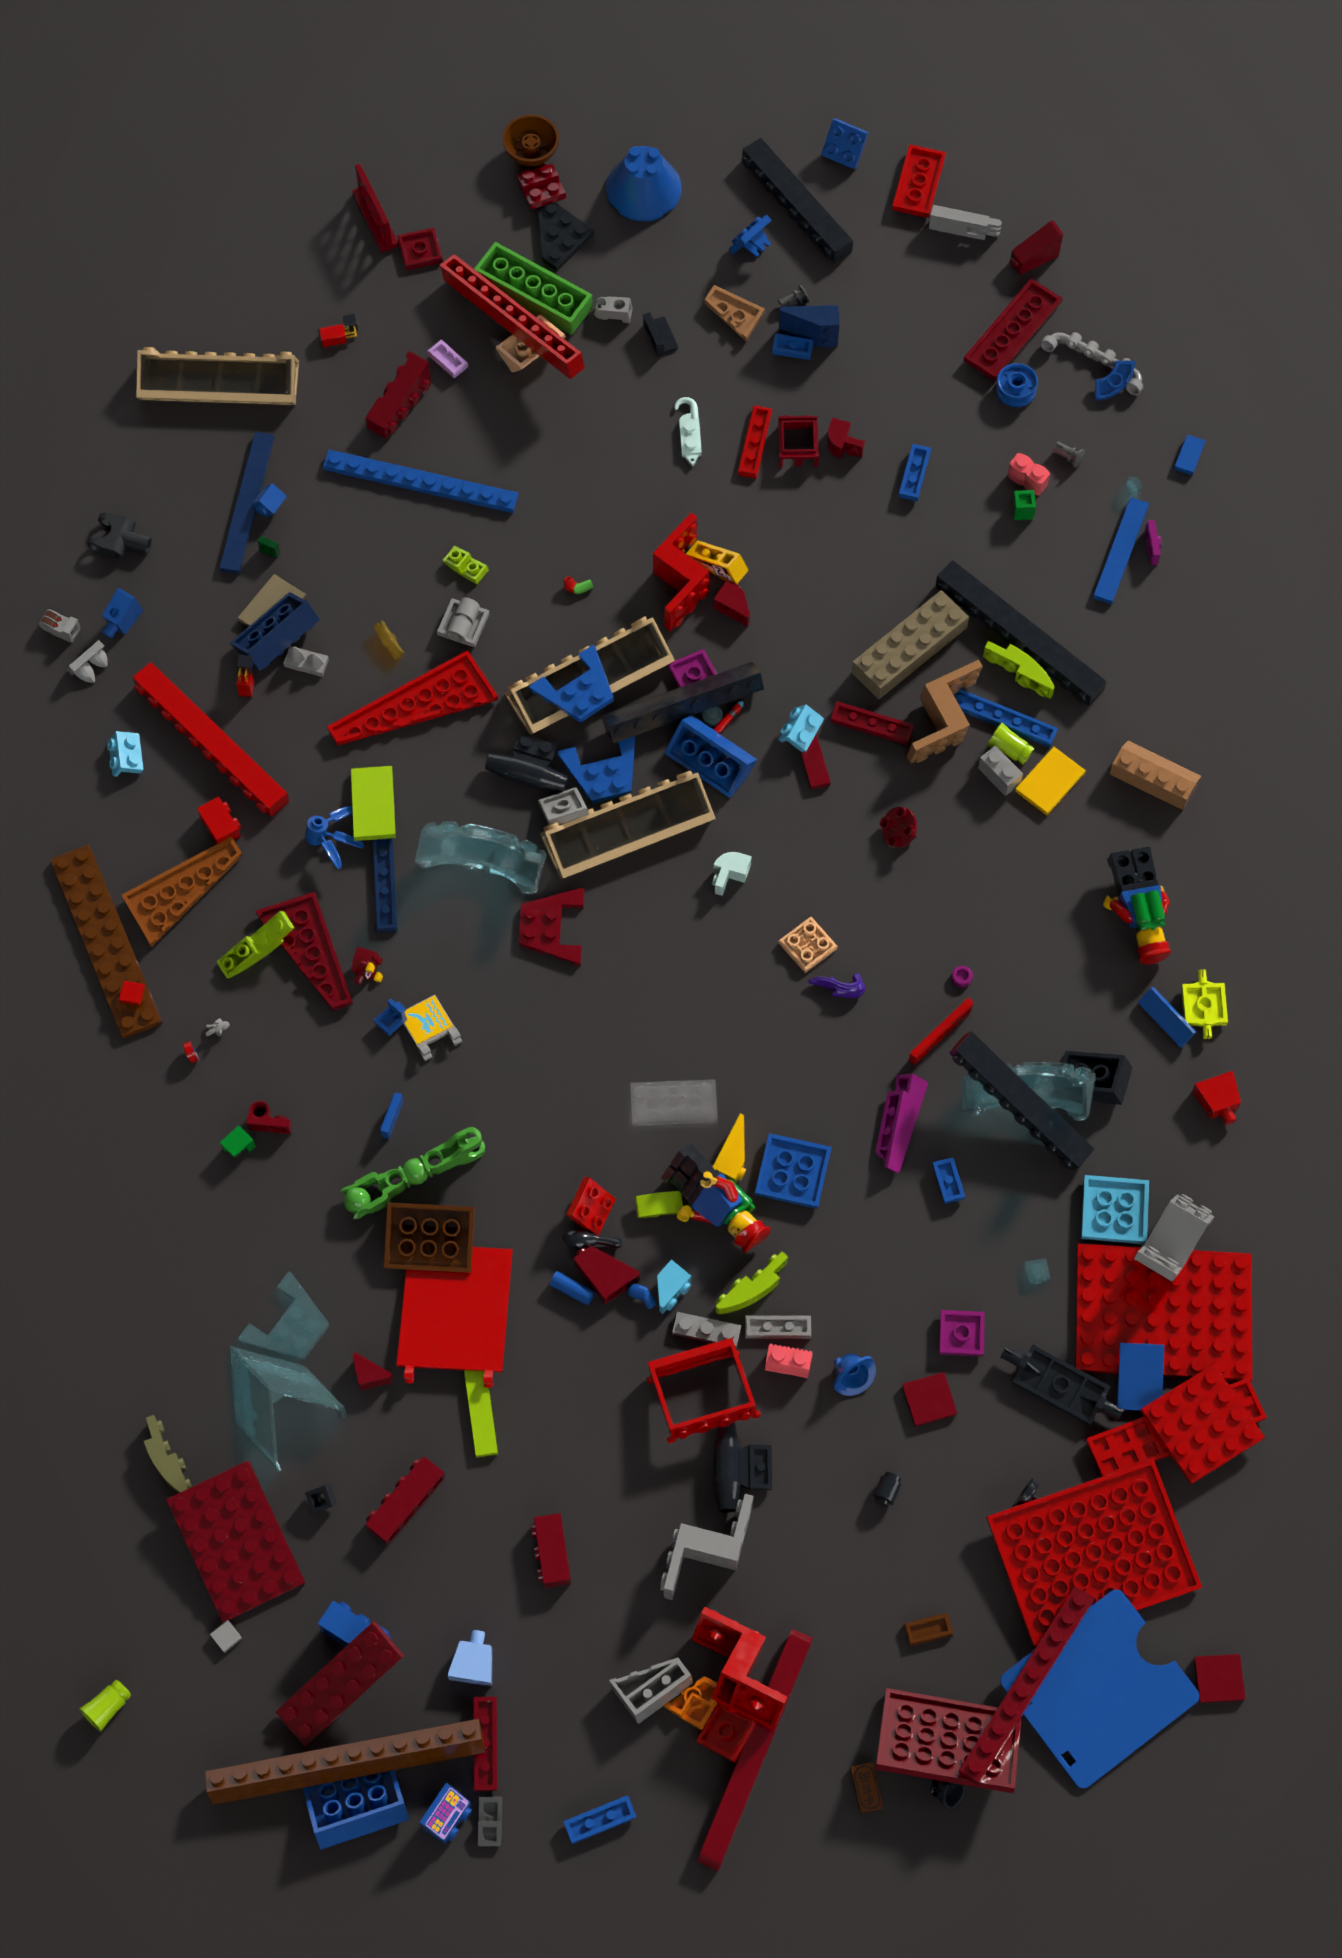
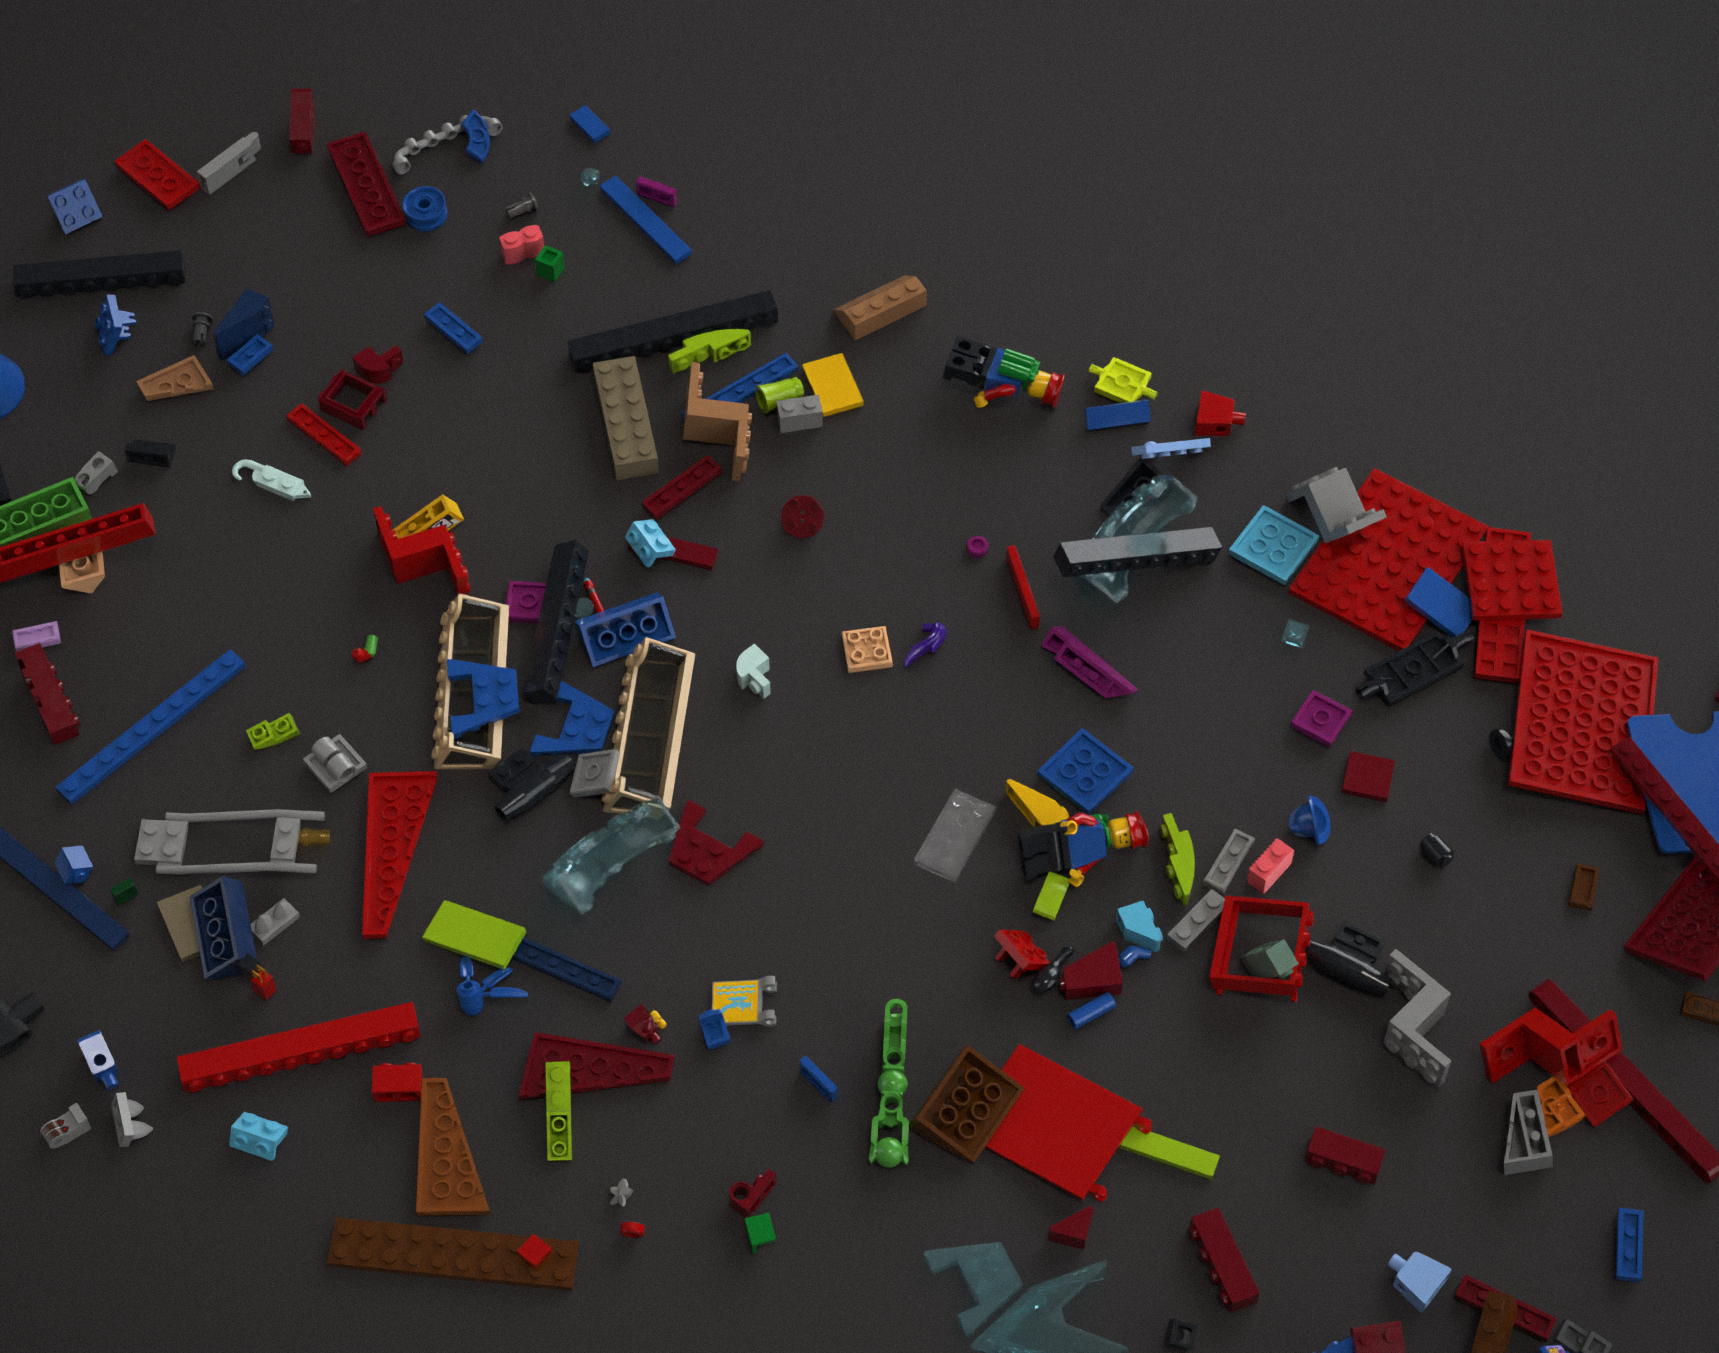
camera: 60 degrees left, 10 degrees down
(328, 548) = (164, 842): none -> light grey plate
(685, 1401) = (1270, 960): none -> sand green brick
(732, 603) = (482, 531): dark red slope -> none
(948, 1180) = (1169, 655): blue plate -> none
(1146, 1067) = (1152, 449): none -> light blue plate

